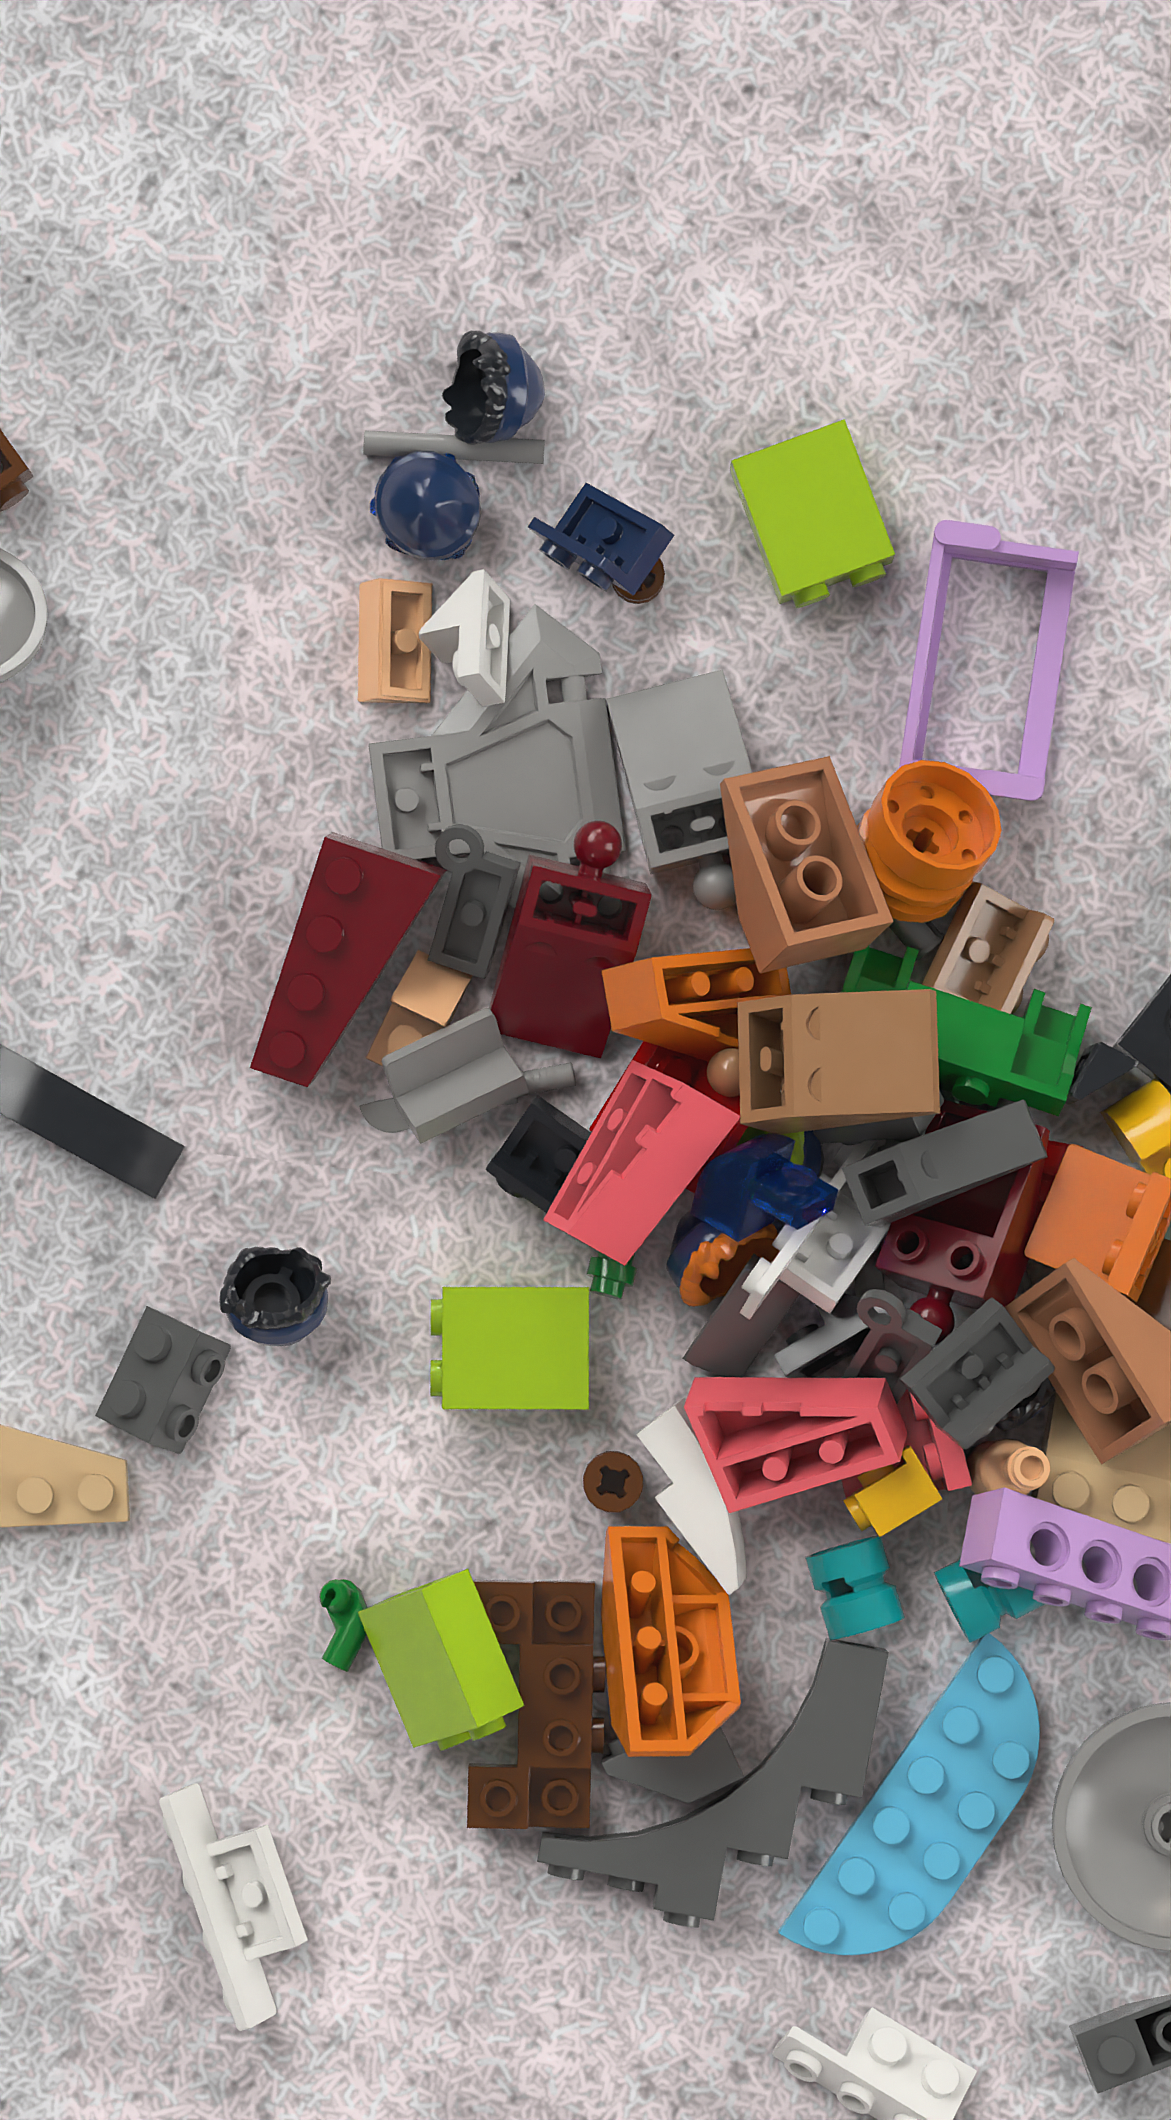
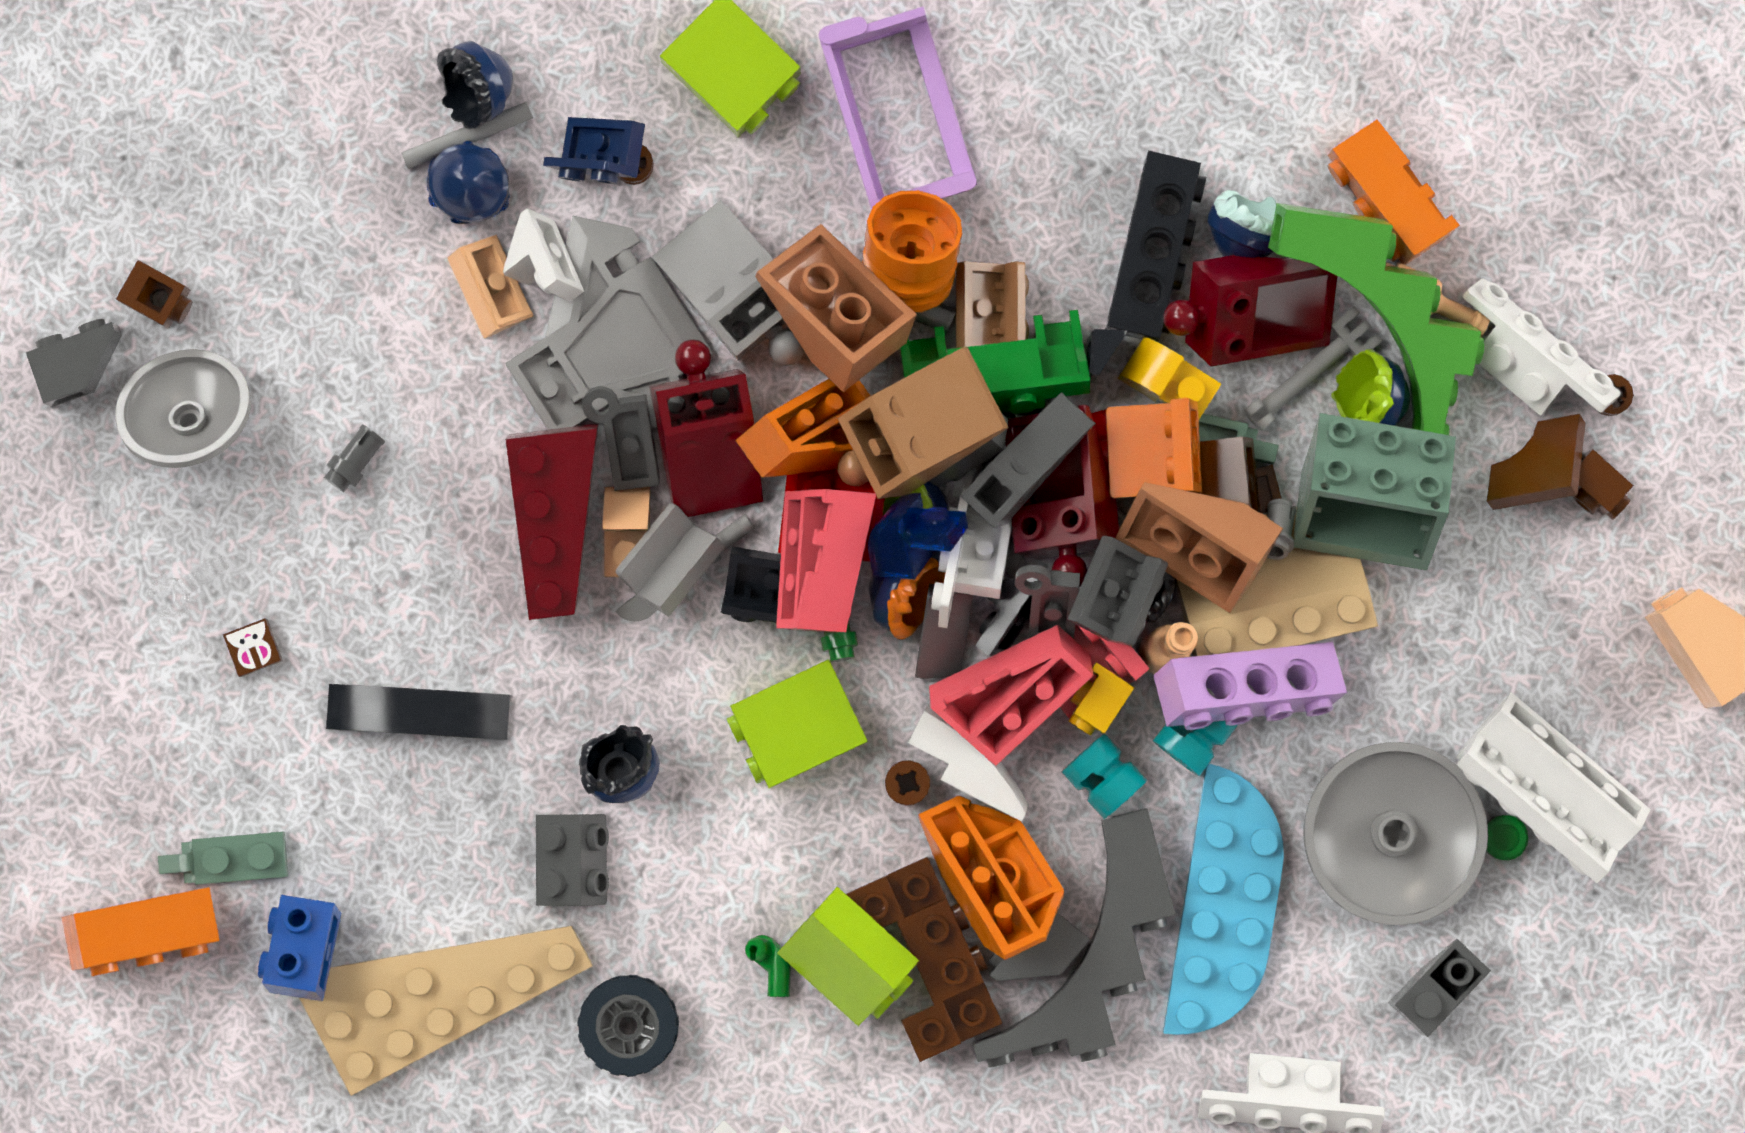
camera: 30 degrees left, 0 degrees up
(101, 1614) = (603, 1035): none -> black wheel
(122, 777) = (347, 467): none -> dark grey animal

